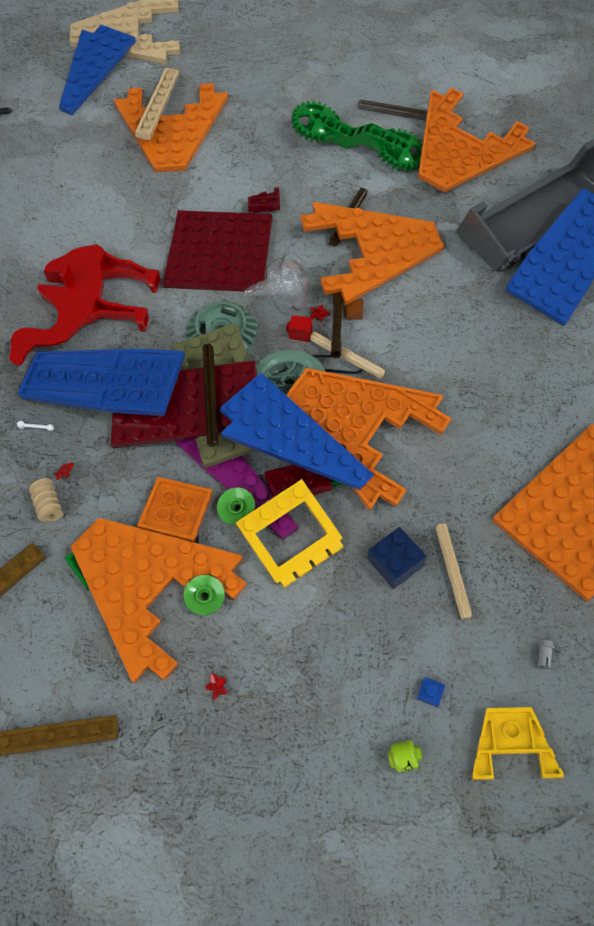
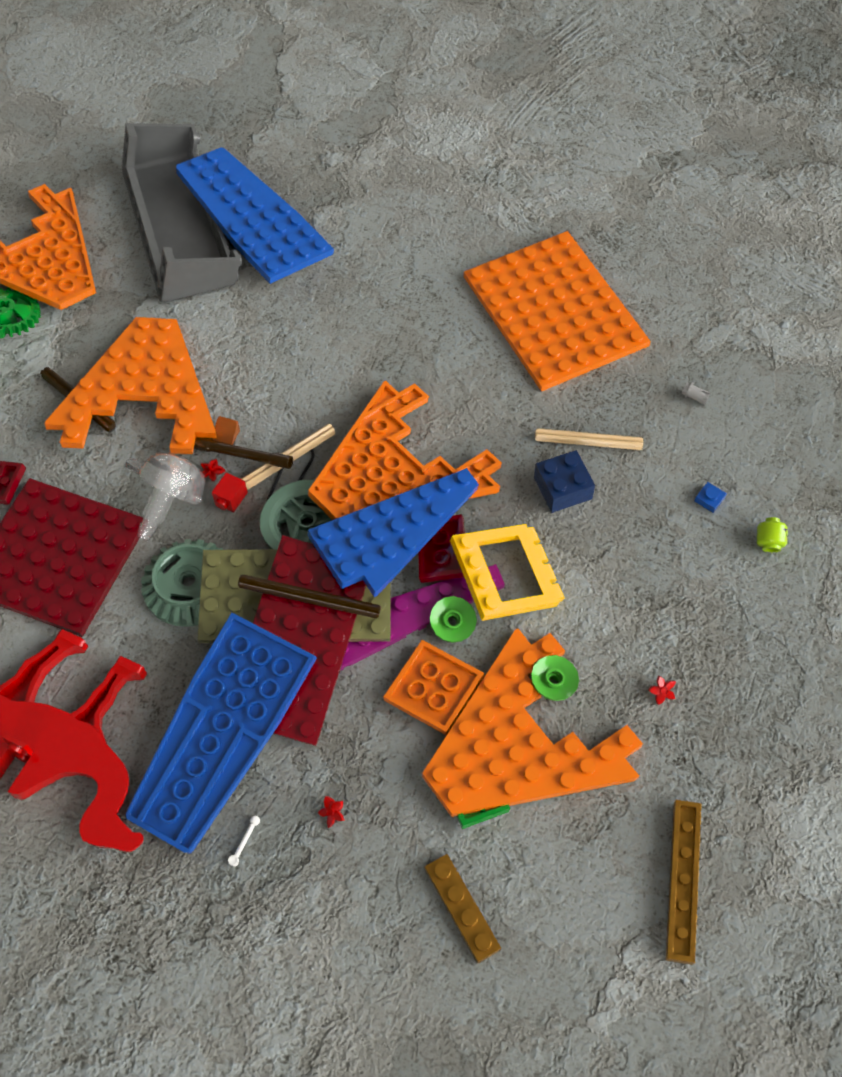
camera: 75 degrees left, 0 degrees up
(45, 500) = (373, 838): tan piece -> none
(509, 733) = (764, 447): yellow wing -> none

